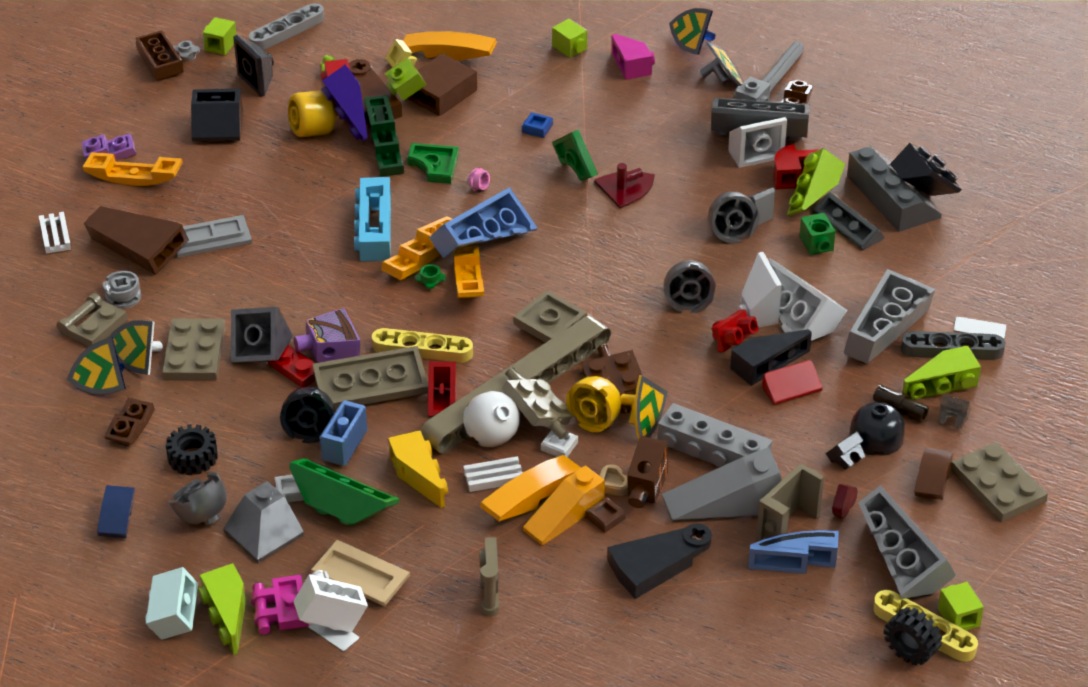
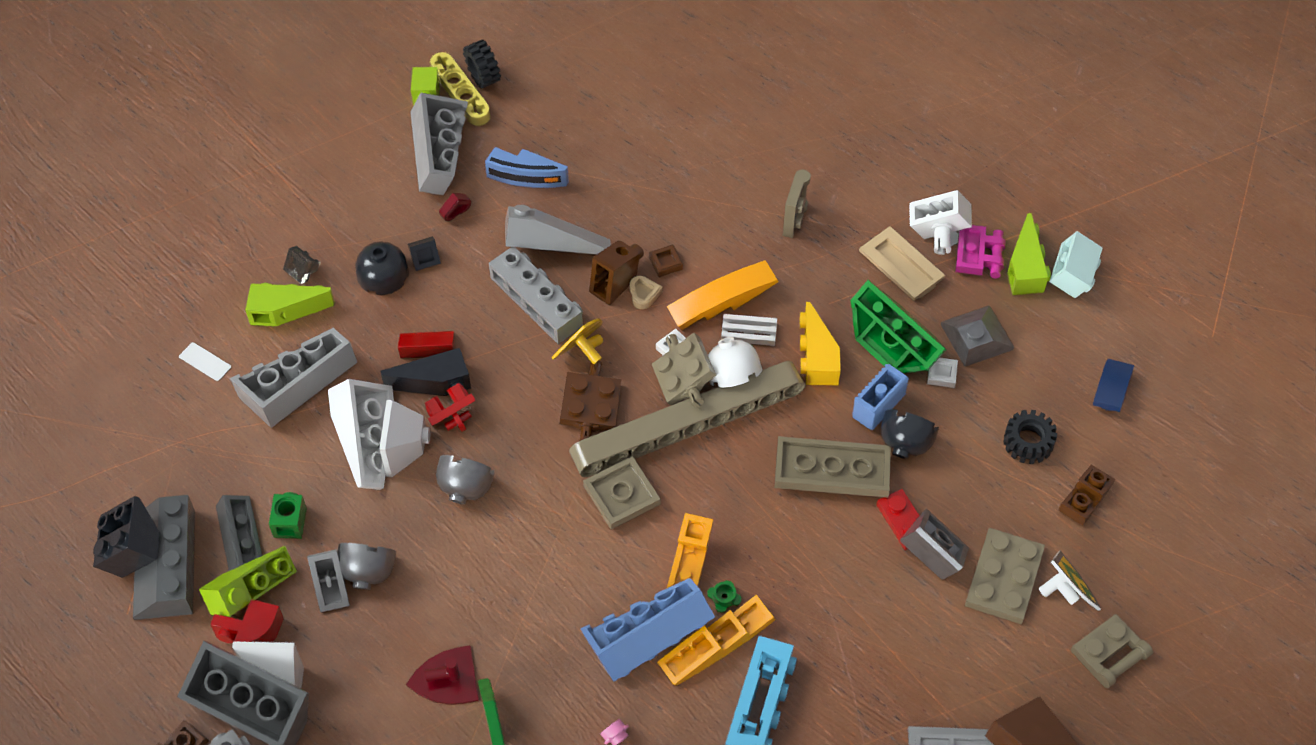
camera: 160 degrees left, 15 degrees up
(98, 369) = (1109, 559): shield -> none
(123, 289) = (1073, 683): light grey wheel -> none
(200, 500) = (1036, 359): flat silver cylinder -> none
(329, 337) = (860, 530): medium lavender torso -> none
(385, 340) = (766, 500): light yellow beam -> none
(441, 386) = (764, 431): red slope -> none
(566, 505) = (695, 269): light orange slope -> none
(594, 403) = (625, 358): yellow cylinder -> none
(657, 558) = (642, 201): black piece -> none
(797, 490) = (528, 191): dark tan panel -> none
(901, 403) = (341, 290): dark brown pin -> none
(933, 473) = (362, 207): reddish brown slope -> none
(952, 340) = (246, 344): dark grey beam -> none
(999, 481) = (311, 193): dark tan plate -> none

